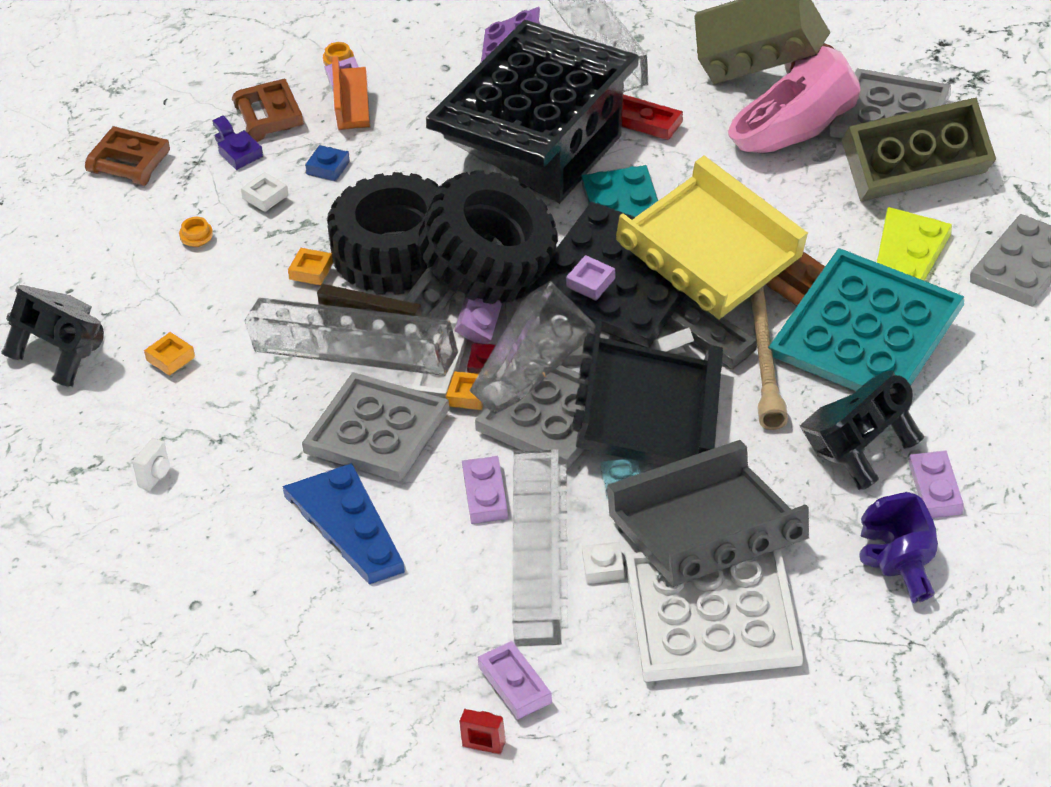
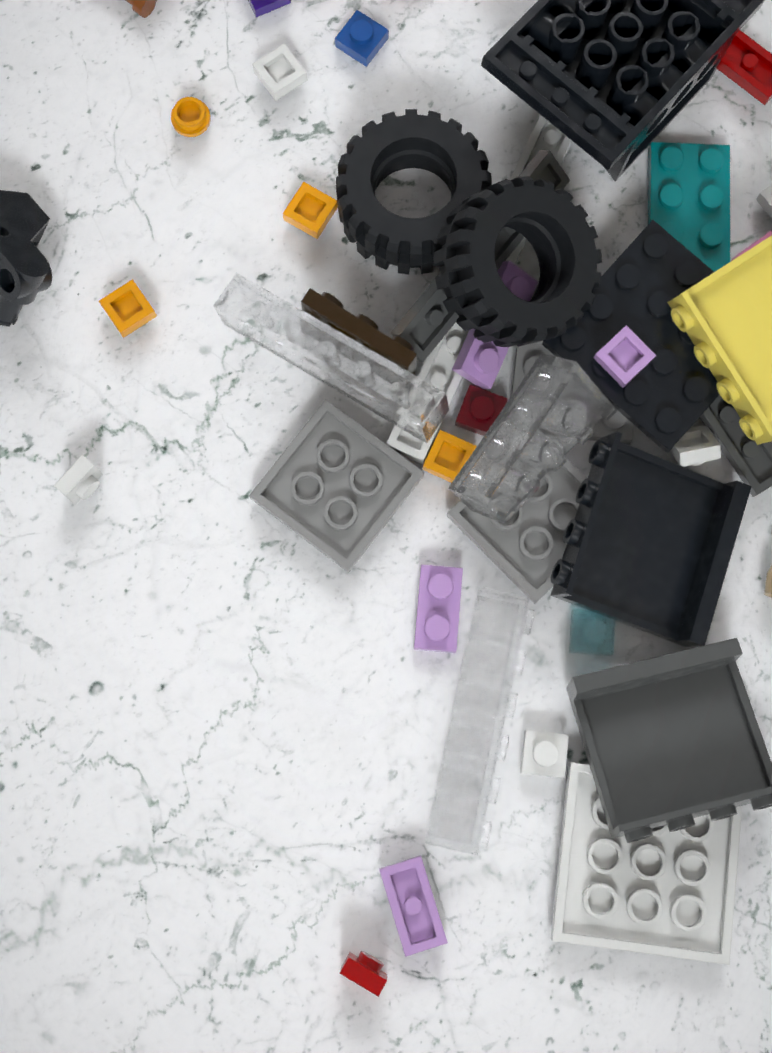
camera: 10 degrees right, 35 degrees up
(348, 519) = (278, 606): blue wing -> none

